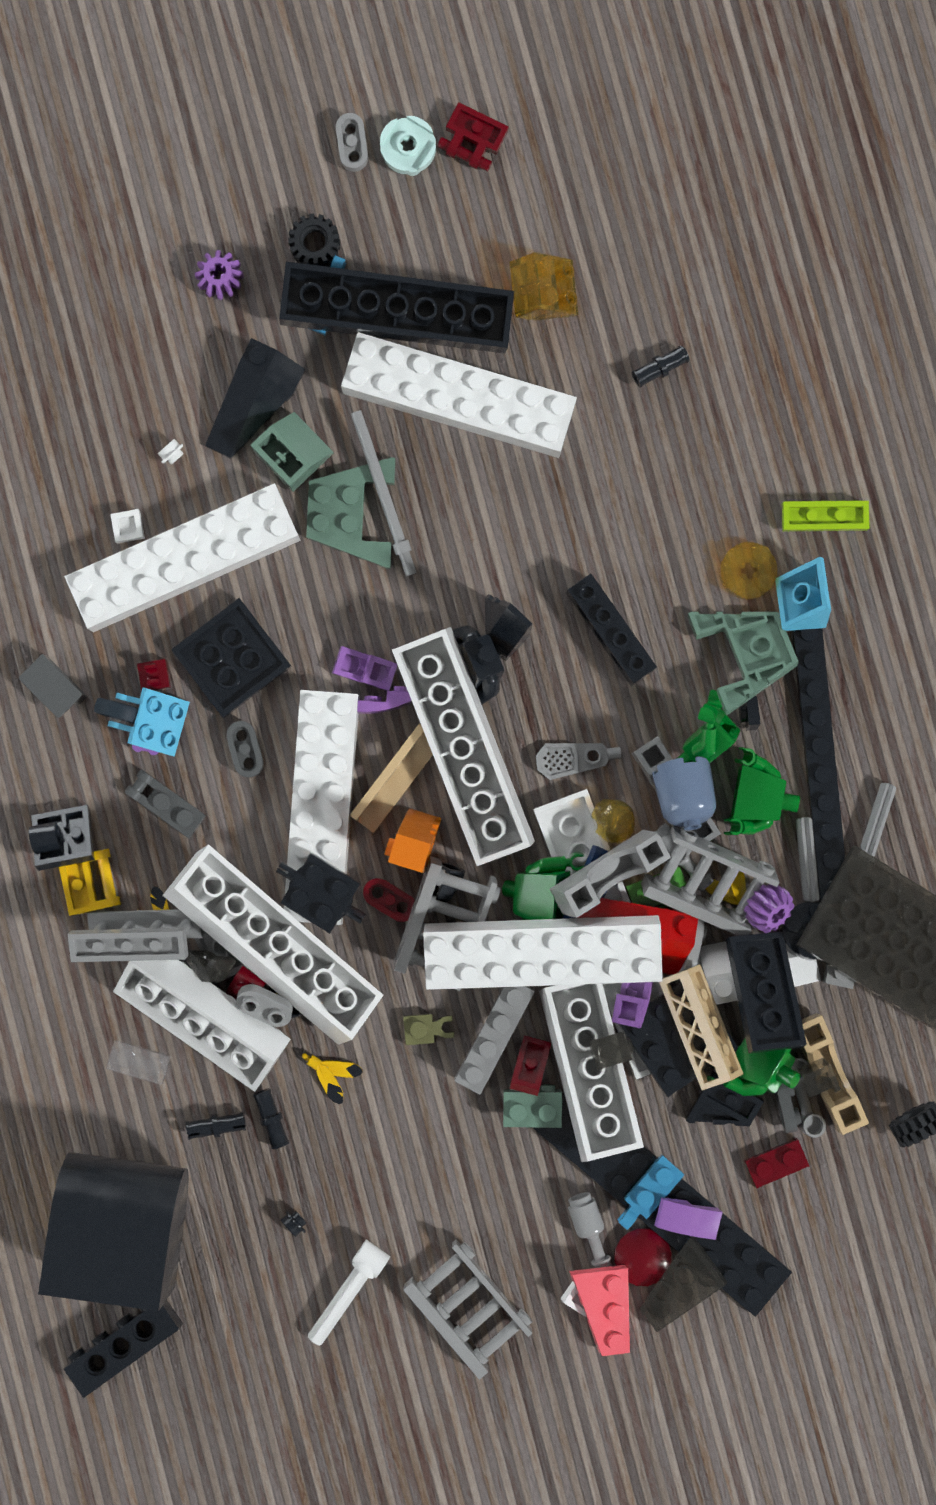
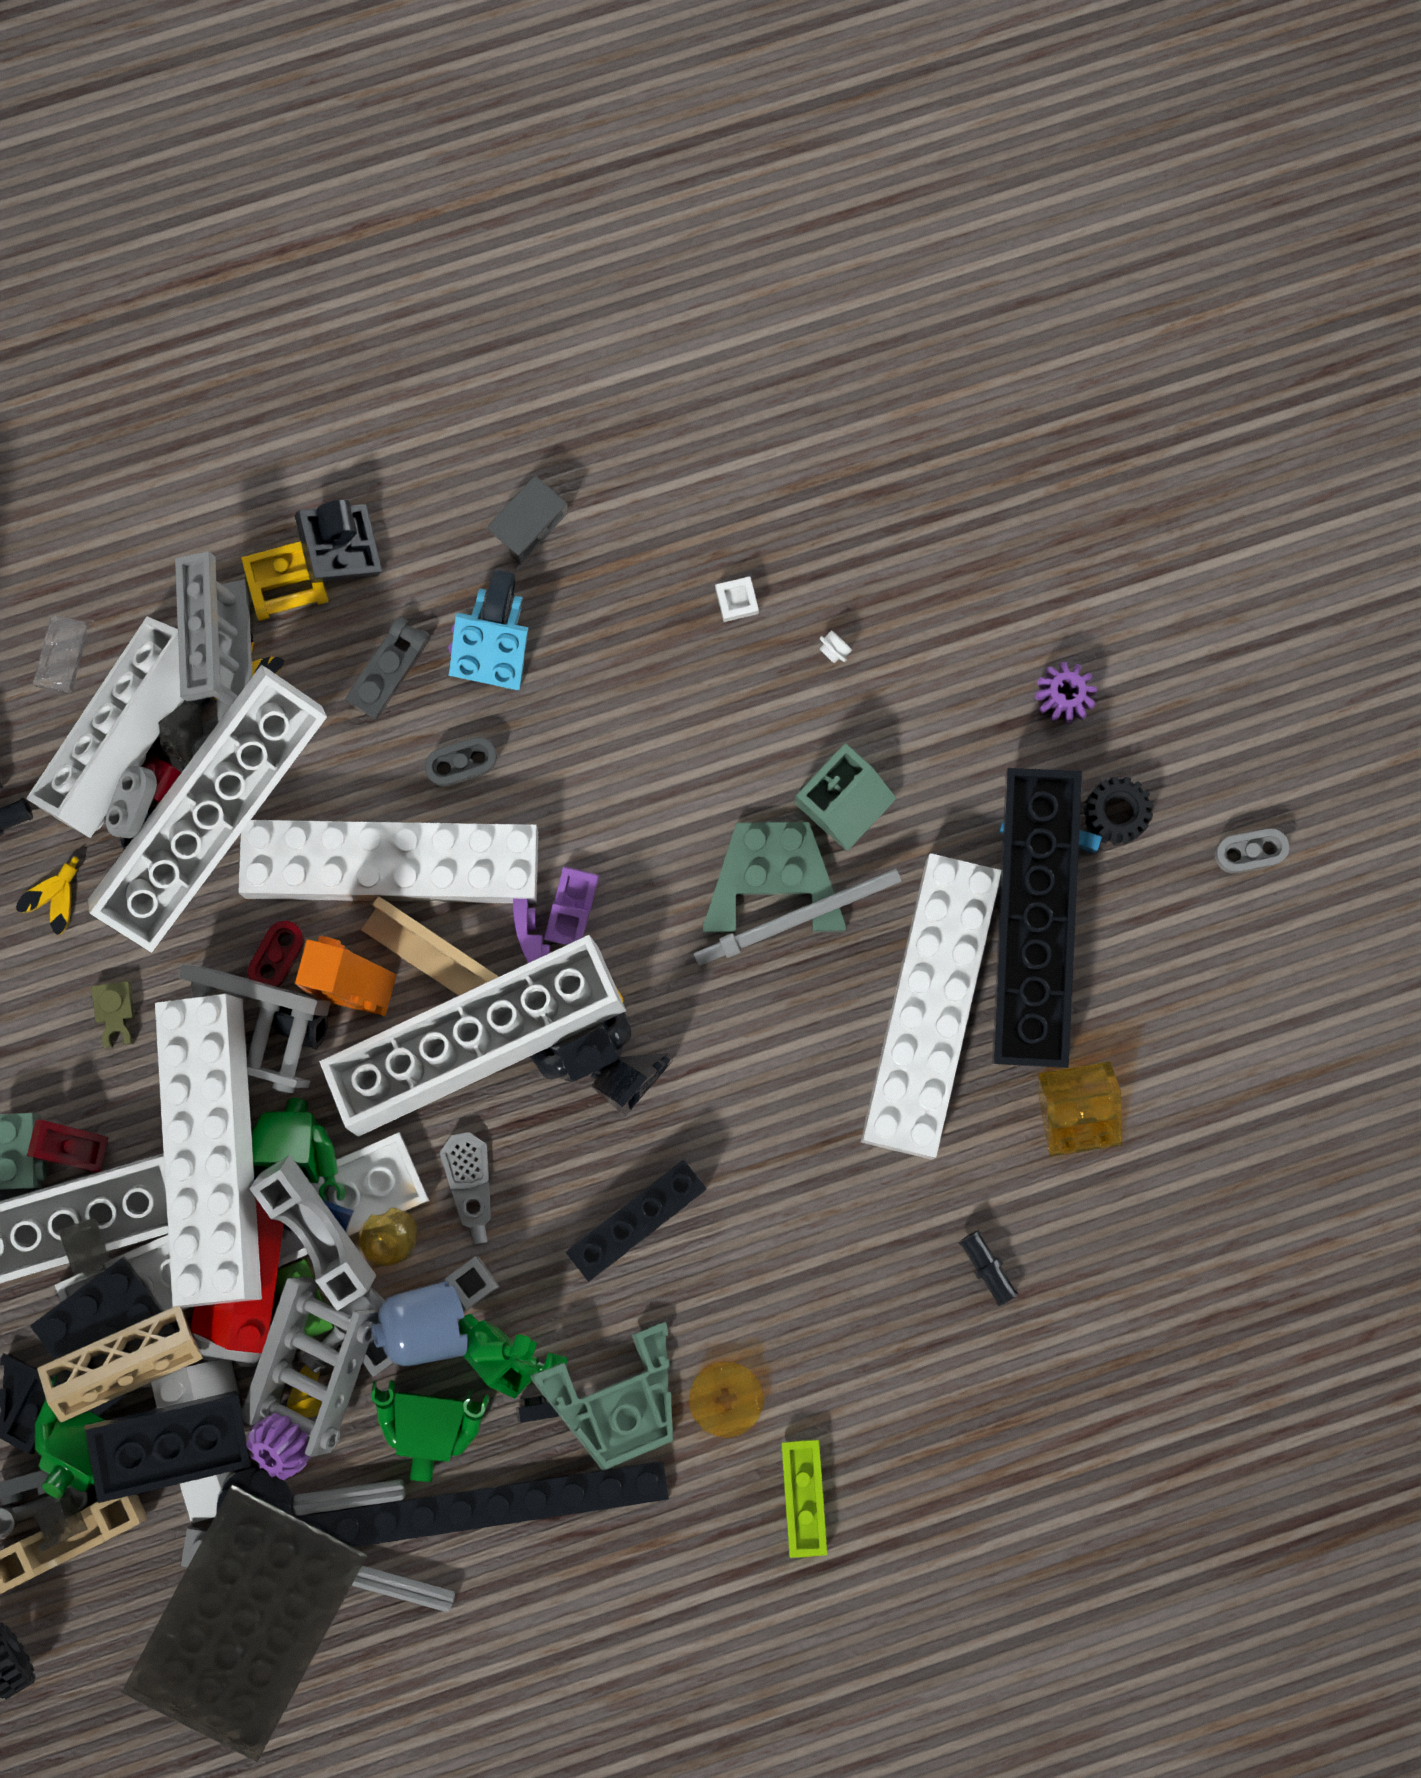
camera: 80 degrees right, 5 degrees down
(154, 675) = (549, 643): dark red tile -> none
(182, 558) = (699, 670): white brick -> none
(231, 658) = (576, 738): black plate -> none
(255, 393) = (918, 748): black wedge -> none
(320, 893) = (275, 864): black plate -> none
(408, 161) = (1234, 930): light aqua plate -> none
(477, 129) = (1283, 1008): dark red plate -> none
(493, 1037) = (98, 1095): light grey arch -> none
(632, 1003) = (145, 1271): medium lavender slope -> none
(804, 597) = (692, 1472): medium azure slope -> none

